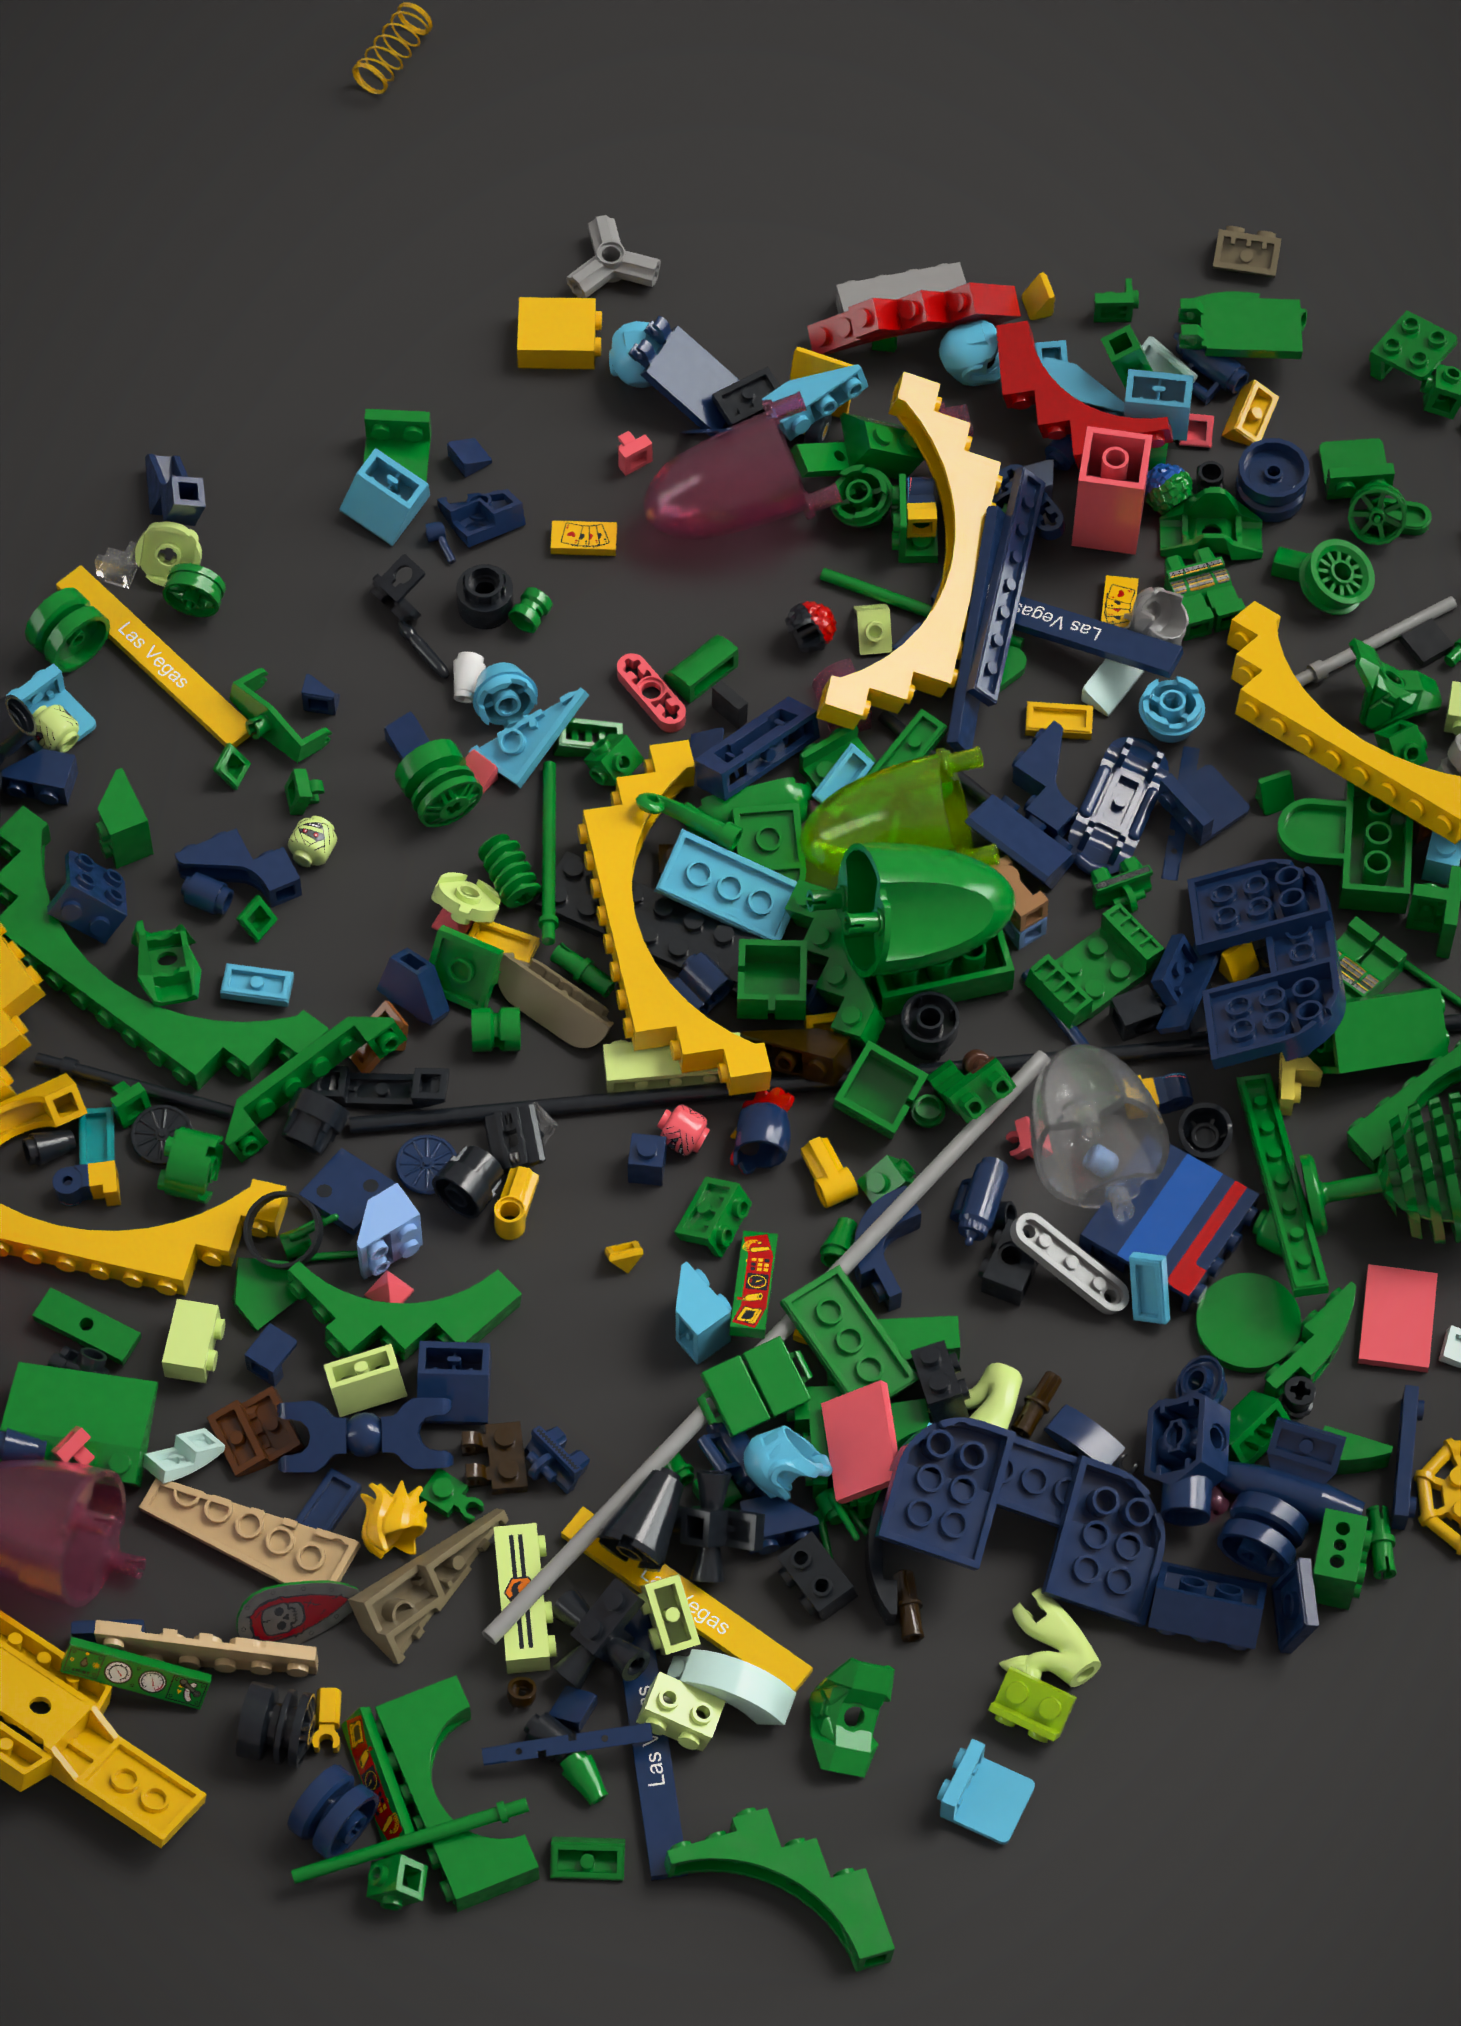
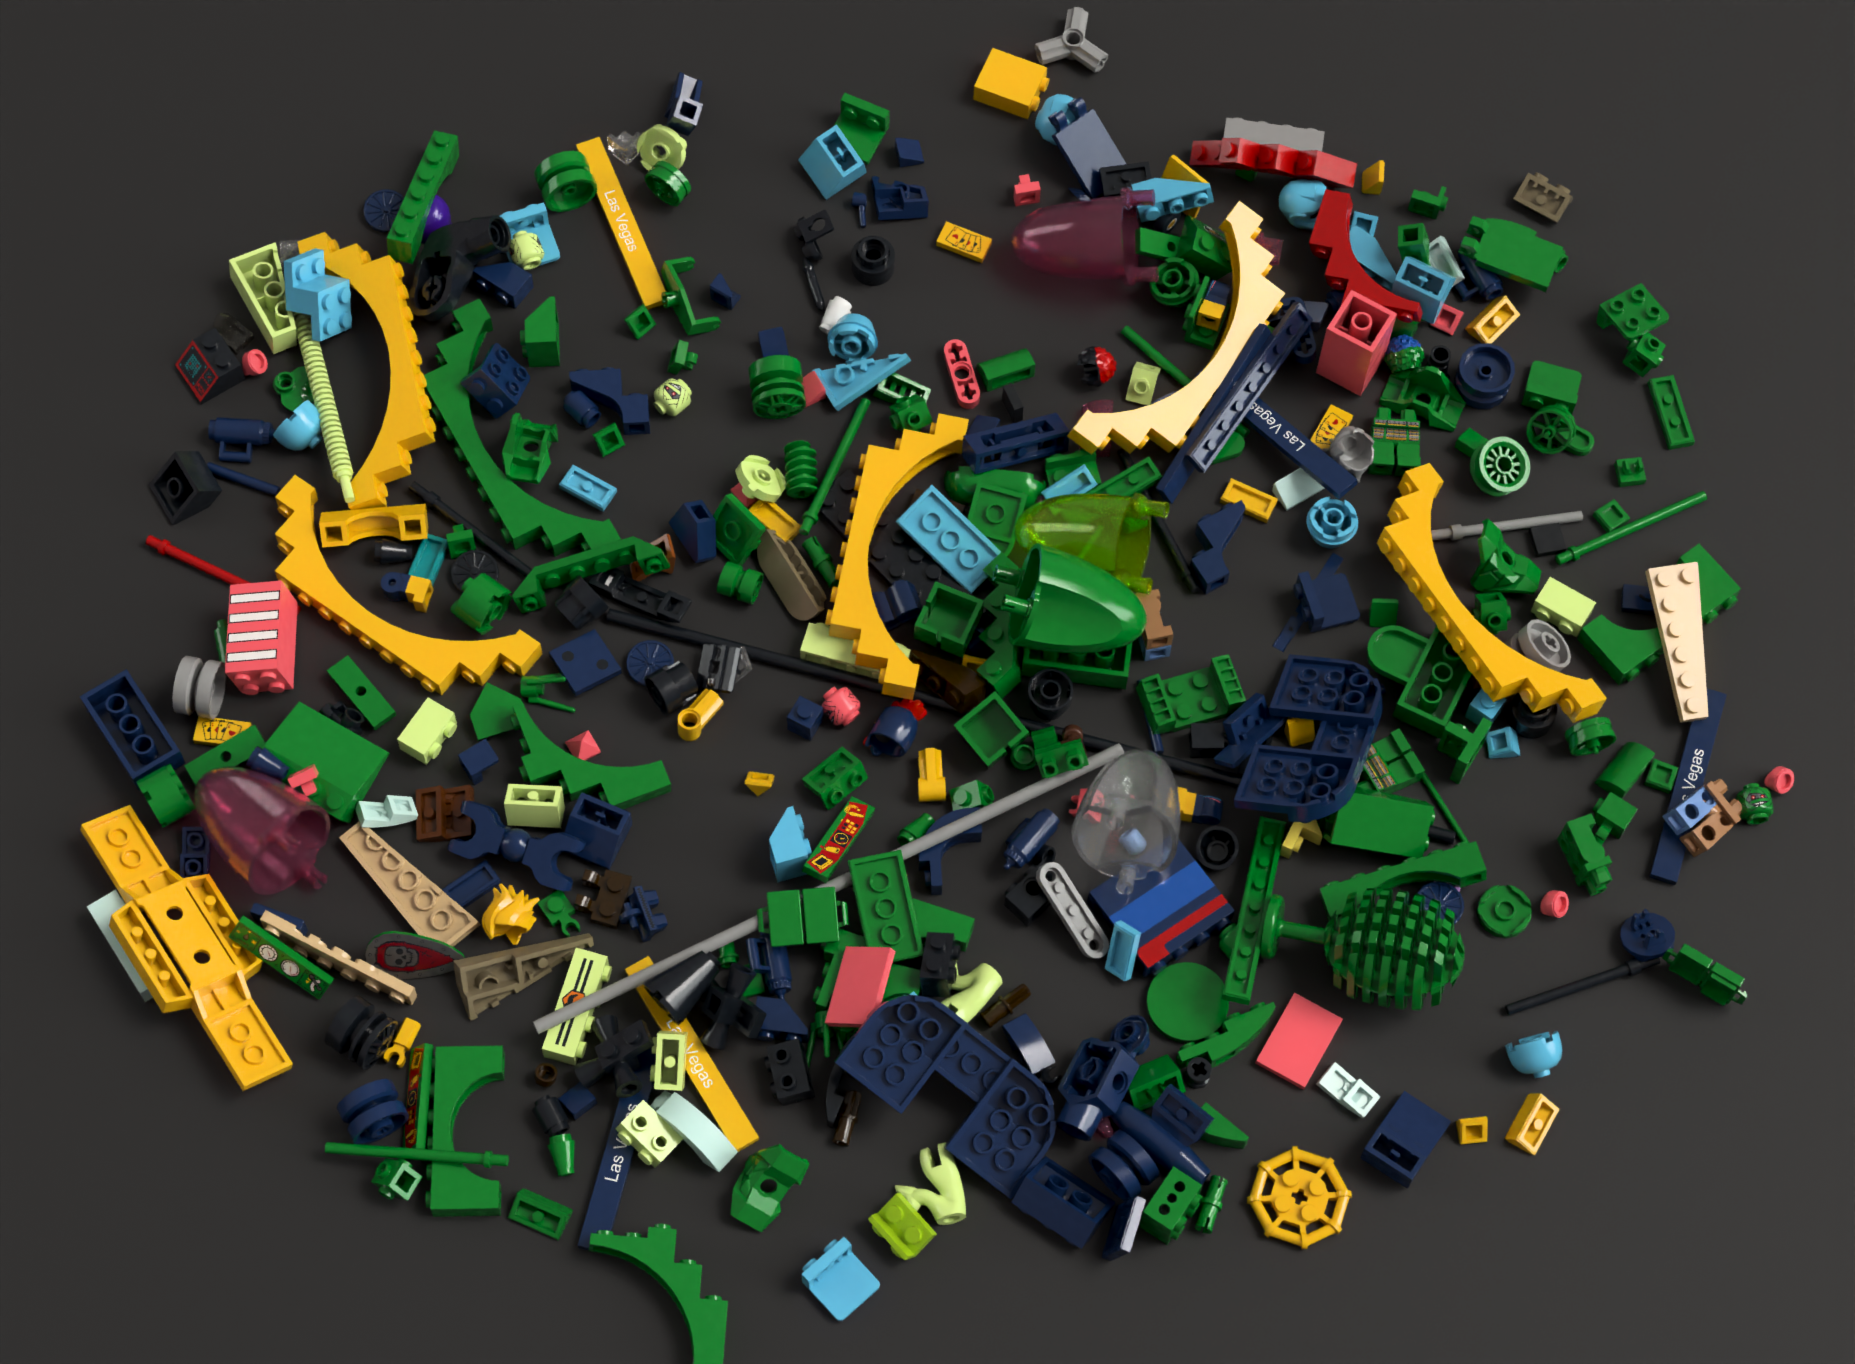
camera: 20 degrees right, 5 degrees up
(255, 1208) = (497, 668): black tyre -> none
(388, 1231) = (595, 703): light blue slope -> none
(531, 608) = (901, 282): green wheel -> none
(561, 1744) = (553, 1125): dark blue piece -> none
(725, 834) = (962, 499): green plant -> none
(779, 1458) = (789, 979): medium azure helmet -> none
(1022, 839) = (1177, 581): dark blue slope -> none
(1117, 804) = (1262, 580): dark blue piece -> none
(1124, 888) = (1238, 644): green hips -> none
(1410, 1412) = (1240, 1182): dark blue plate -> none

